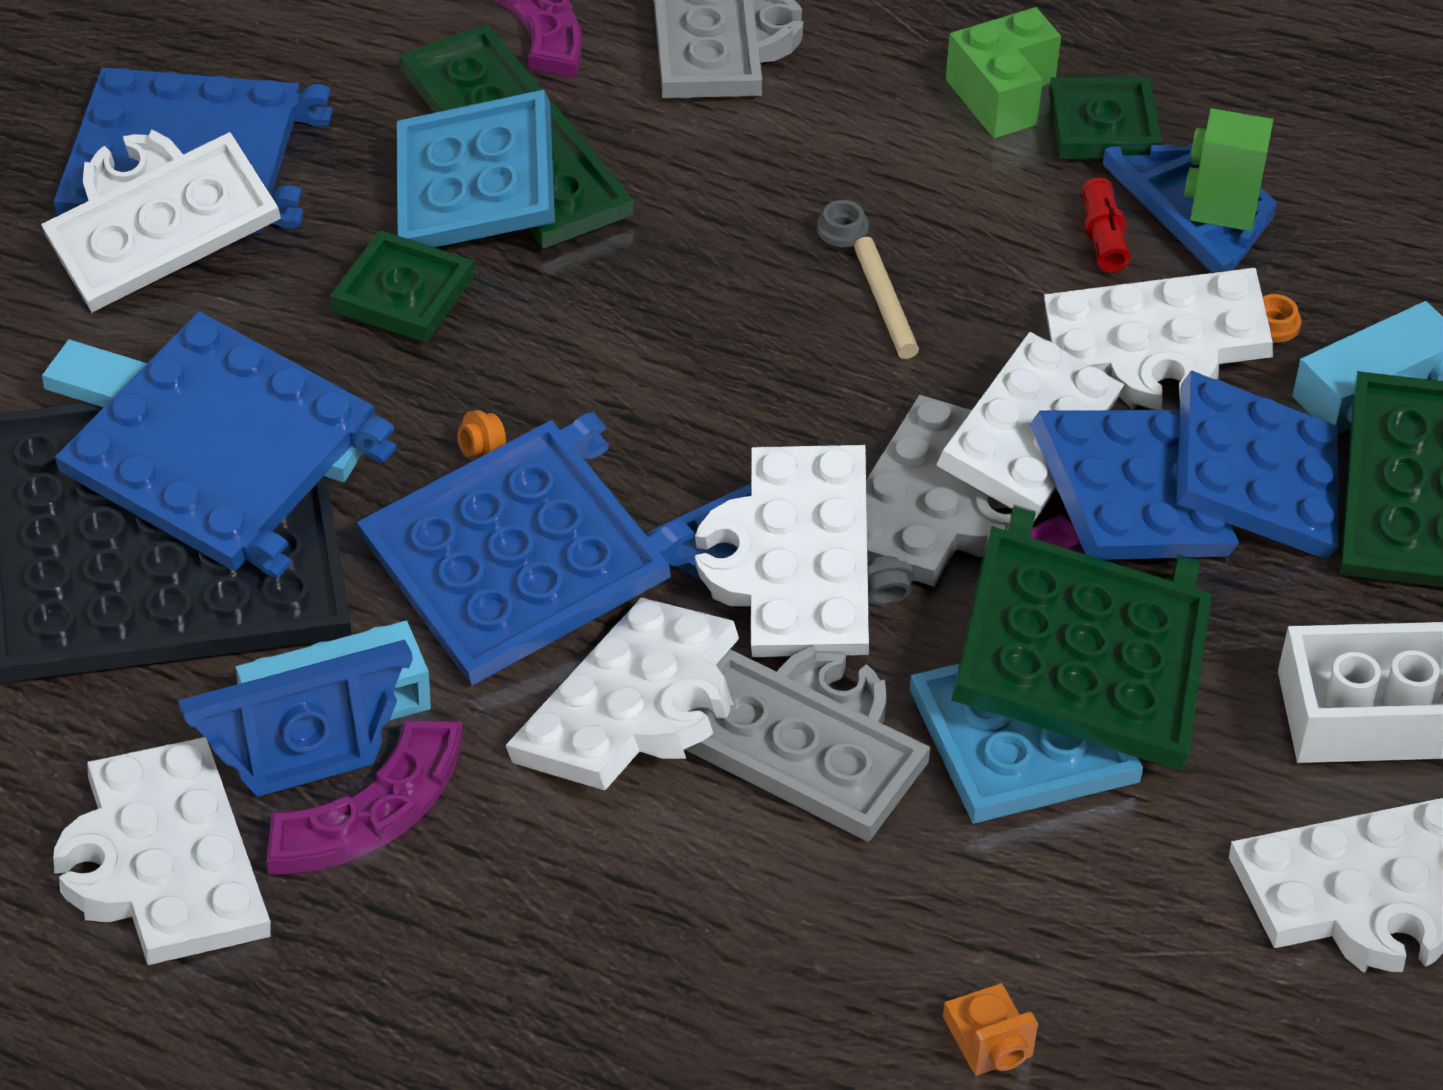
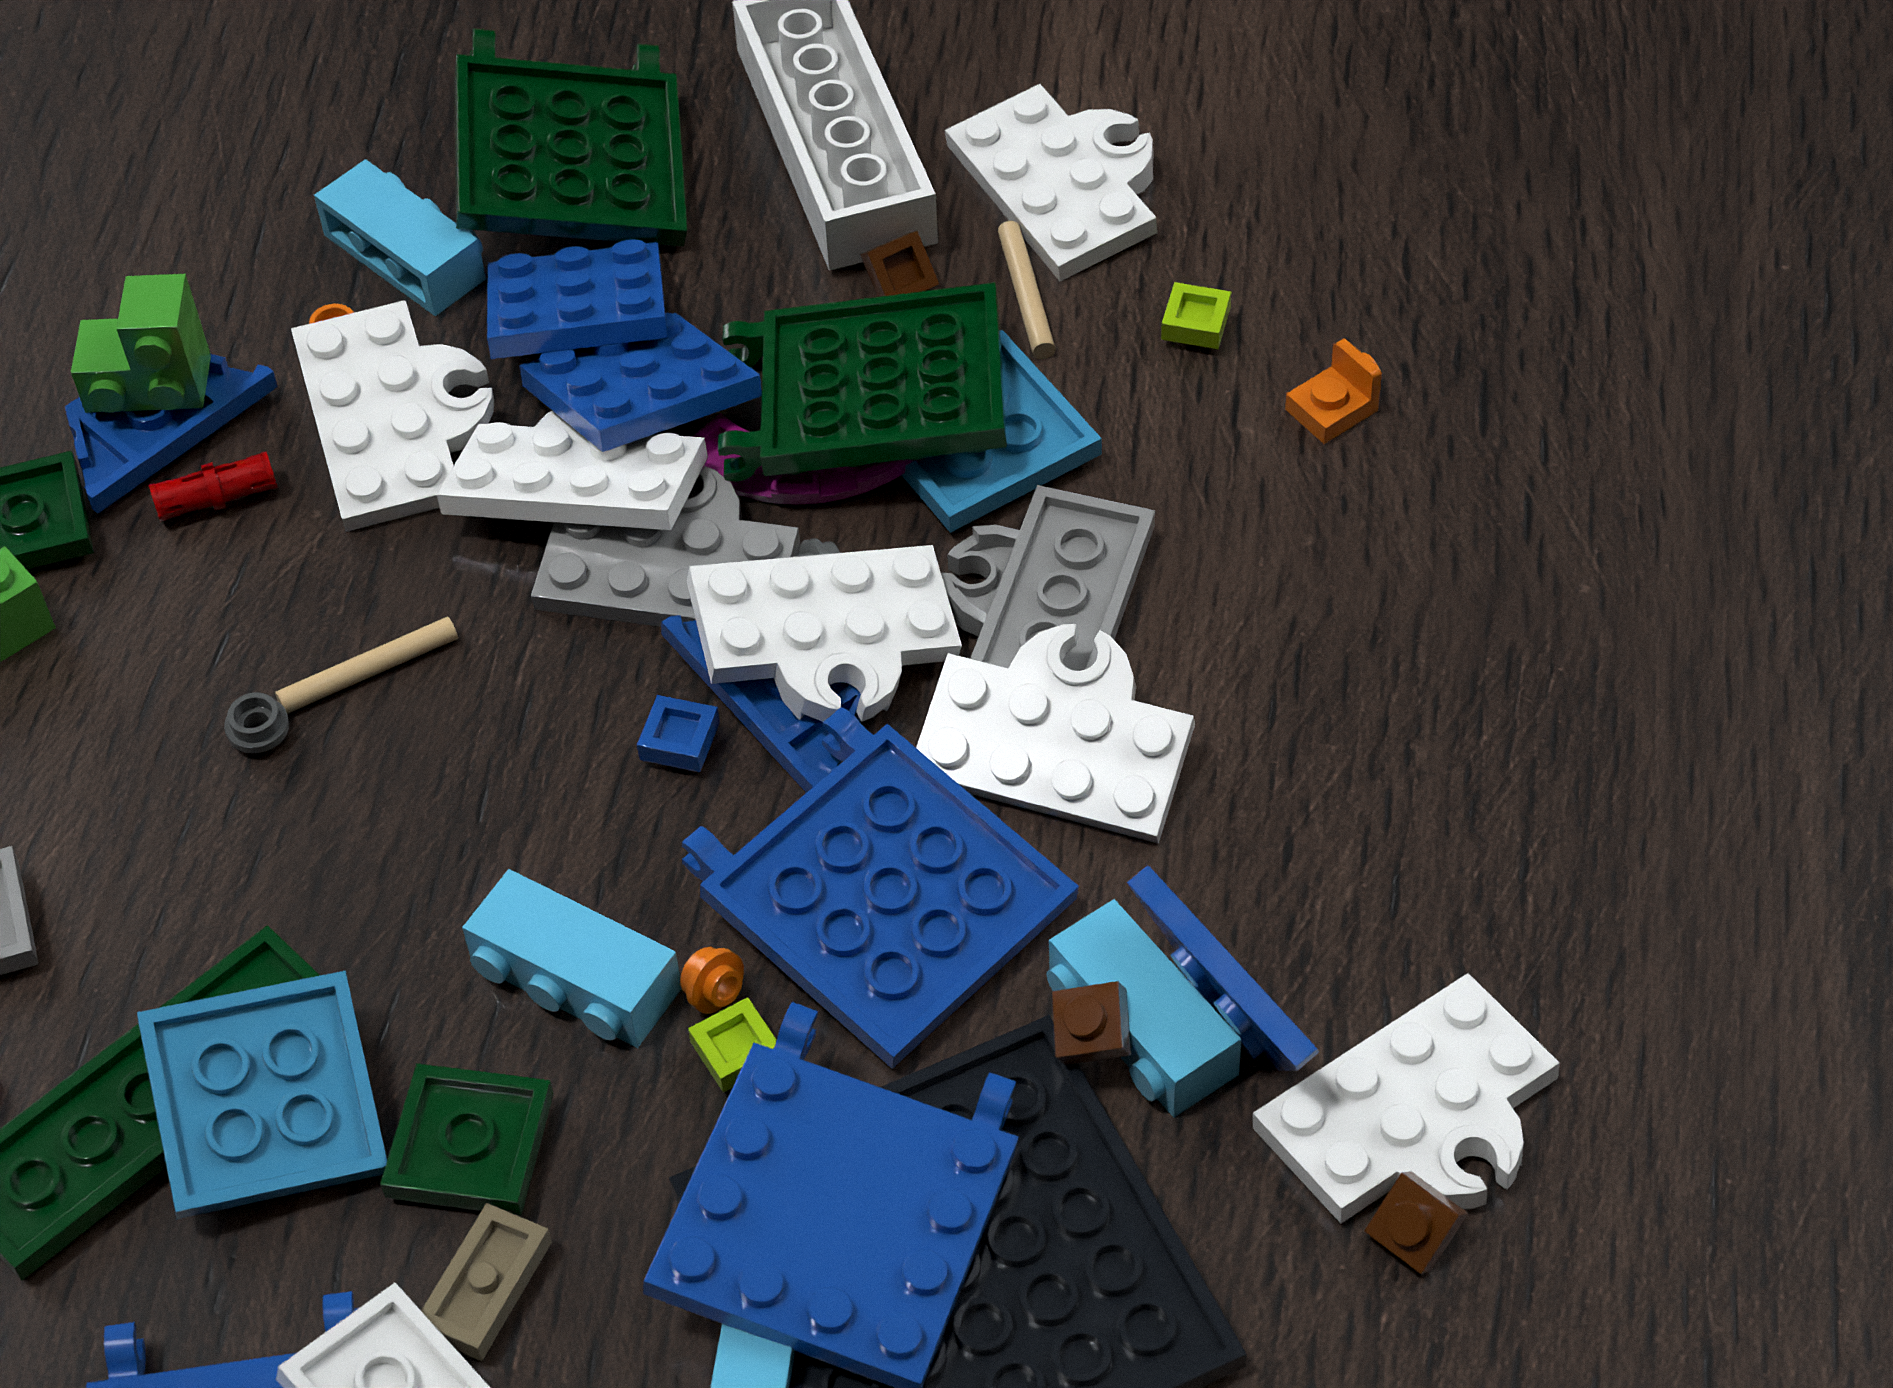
camera: 100 degrees left, 5 degrees up
(52, 808) = (1416, 1222): none -> reddish brown plate
(280, 277) = (486, 1279): none -> dark tan plate
(312, 624) = (1091, 1023): none -> reddish brown plate
(380, 813) = (1289, 941): magenta tile -> none
(419, 441) = (727, 1039): none -> lime plate
(535, 358) = (572, 959): none -> medium azure brick
(730, 459) = (678, 733): none -> blue plate
(1131, 937) = (1196, 315): none -> lime plate
(1211, 817) = (1026, 290): none -> tan bar
(1252, 711) = (900, 266): none -> reddish brown plate

